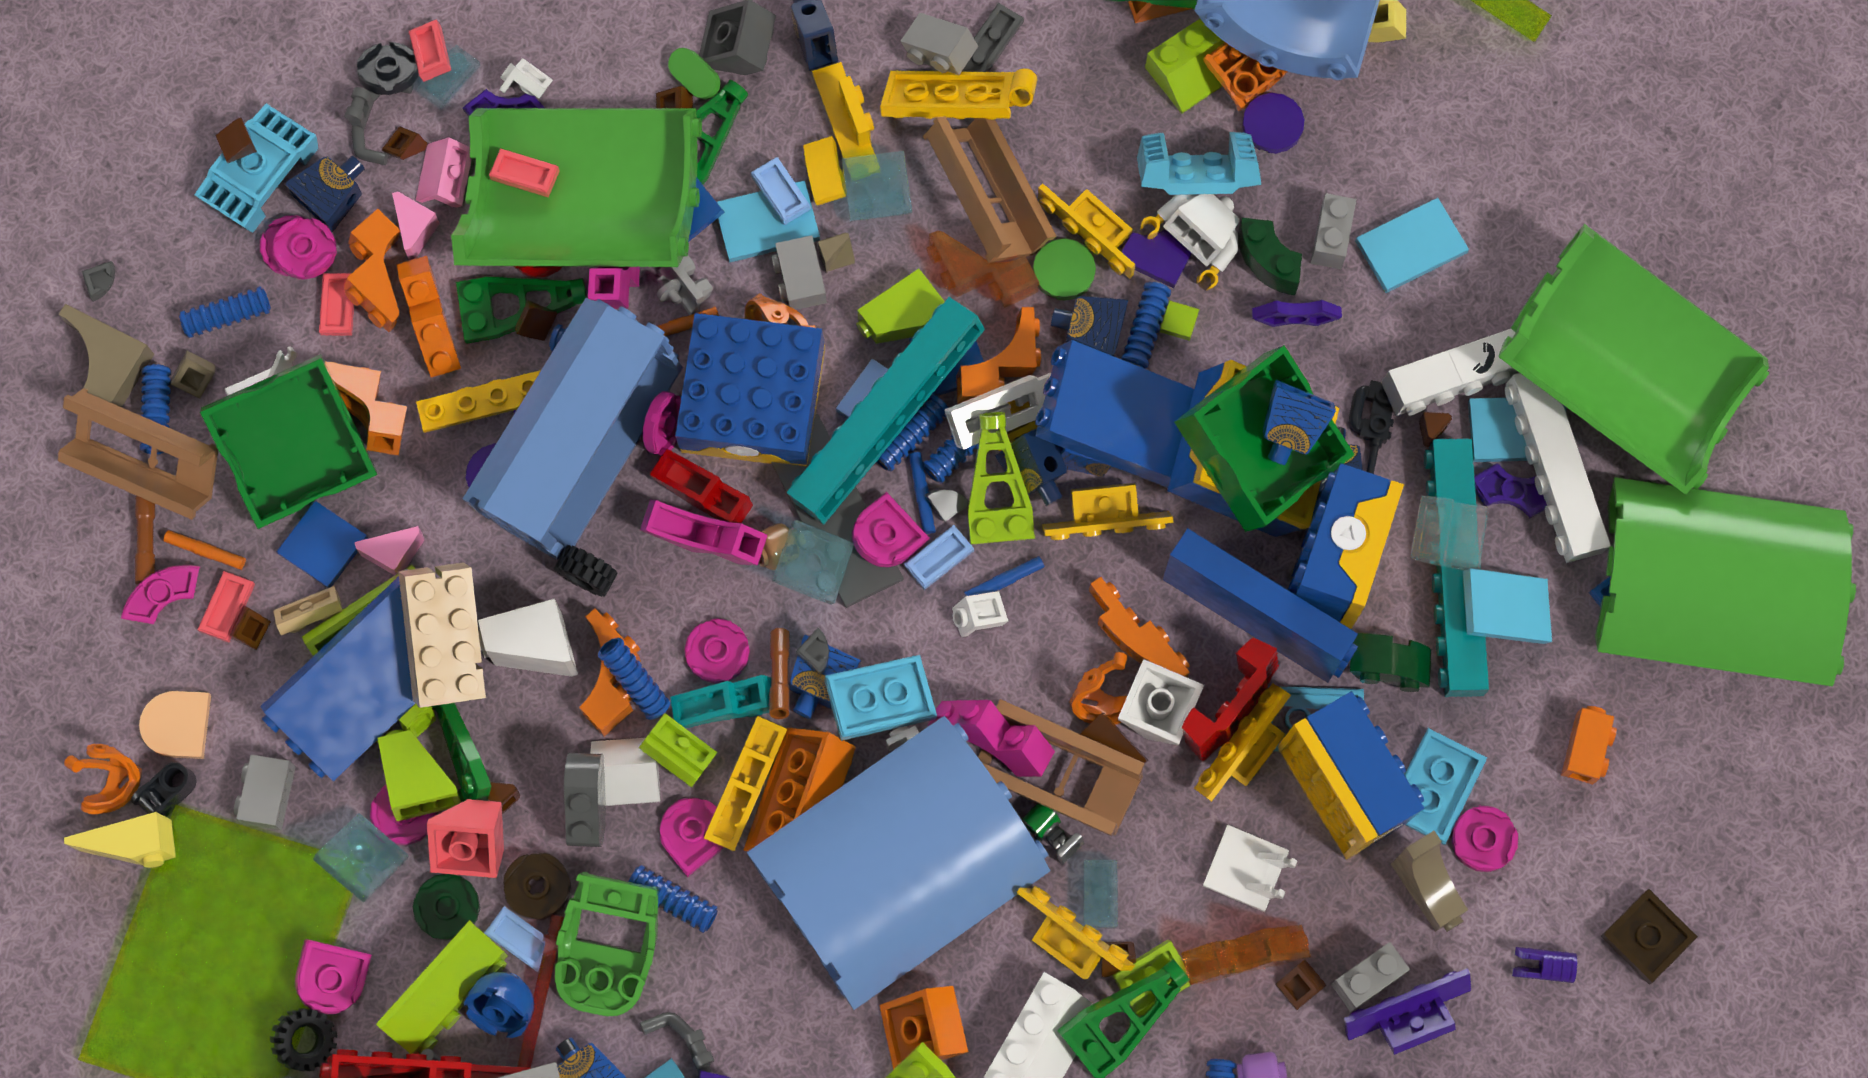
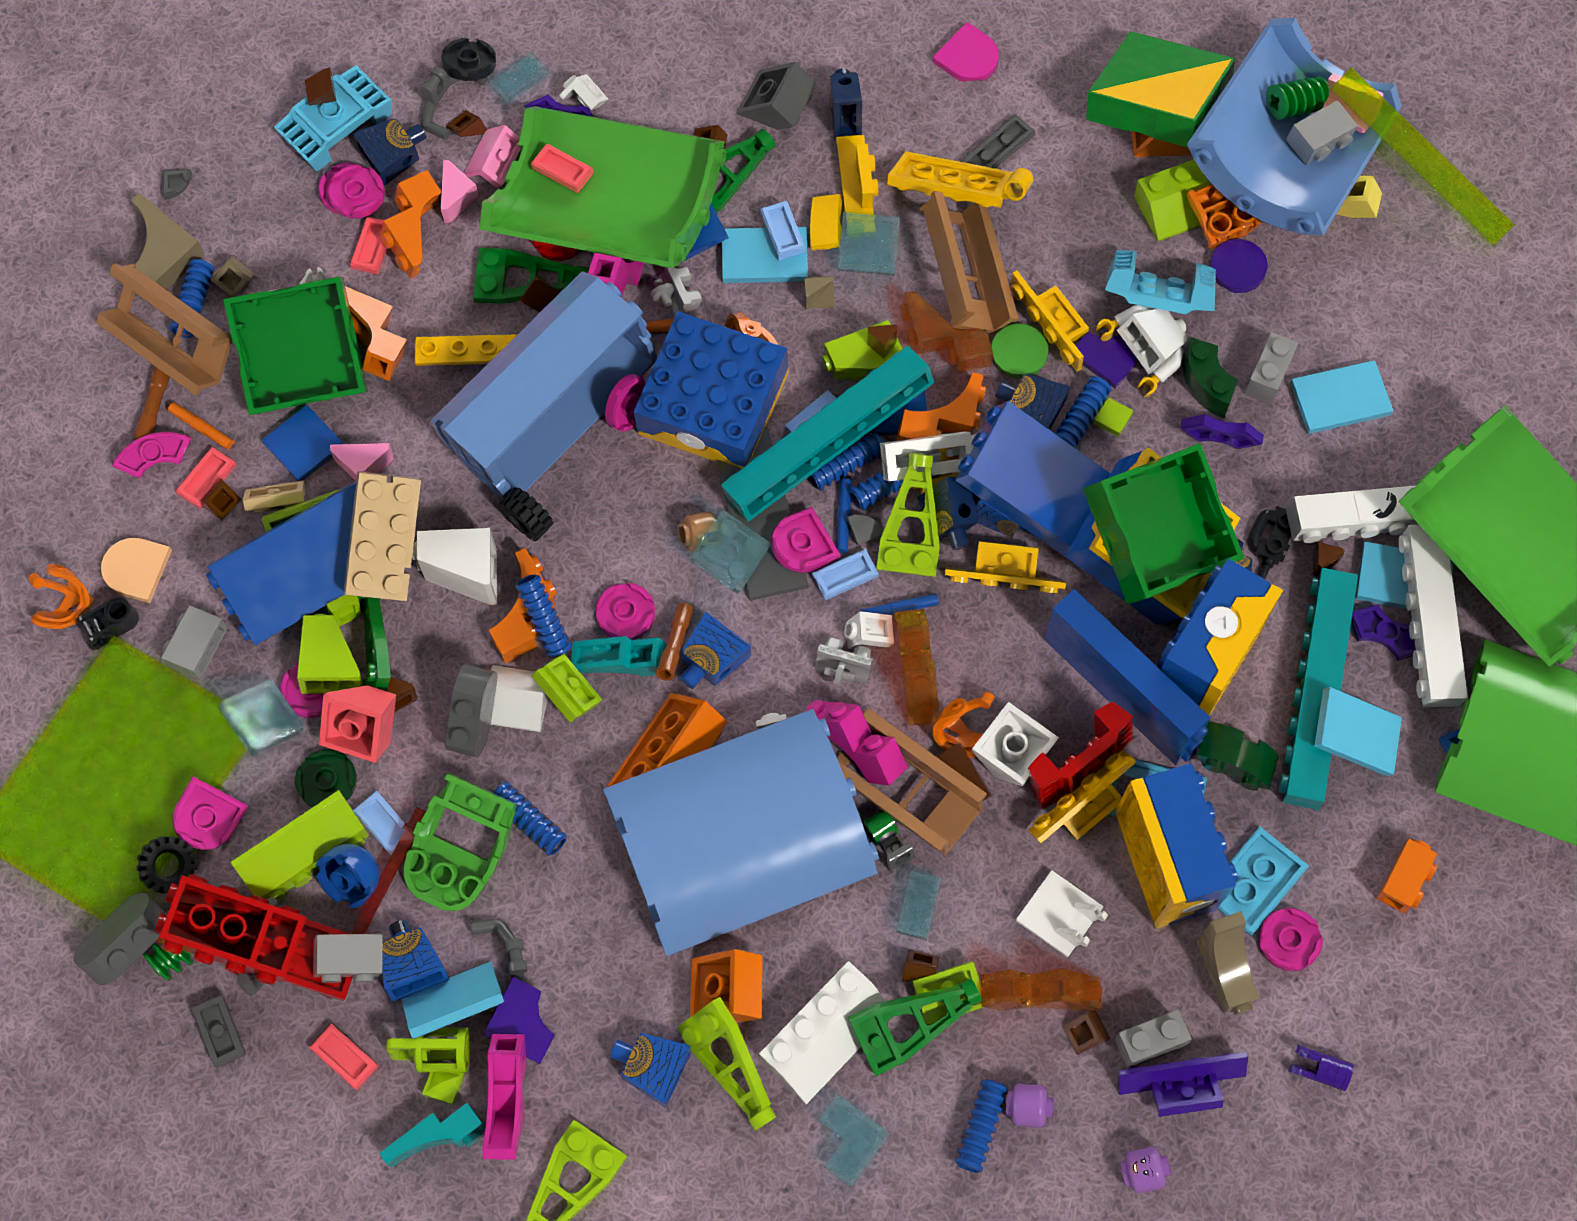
camera: 15 degrees right, 5 degrees down
(139, 840) = (71, 657): light yellow slope -> none
(224, 312) = (273, 230): blue piece -> none
(428, 316) = (447, 271): orange arch -> none
(430, 50) = (508, 52): coral tile -> none
(517, 886) = (411, 762): dark brown plate -> none
(684, 832) = (564, 766): dark pink tile -> none
(694, 73) = (732, 117): bright green tile -> none
(701, 488) = (648, 468): red slope -> none
(703, 534) = (636, 505): dark pink arch -> none
(745, 783) = (620, 731): yellow slope -> none
(800, 273) = (782, 306): light grey brick -> none
(815, 651) = (711, 628): dark grey tile -> none
(880, 697) = (759, 682): medium azure tile -> none
(918, 293) = (882, 338): none -> reddish brown slope
(939, 44) = (953, 135): light grey brick -> none
(961, 657) = (843, 664): none -> light grey hips
(1038, 640) = (917, 666): none -> clear orange arch
(1069, 941) = (879, 940): yellow bracket -> none
(1138, 642) = (997, 674): orange slope -> none
(1294, 421) = (1194, 513): blue torso -> none
(1449, 533) = (1318, 653): clear slope -> none
(1649, 936) = (1427, 1065): dark brown plate -> none

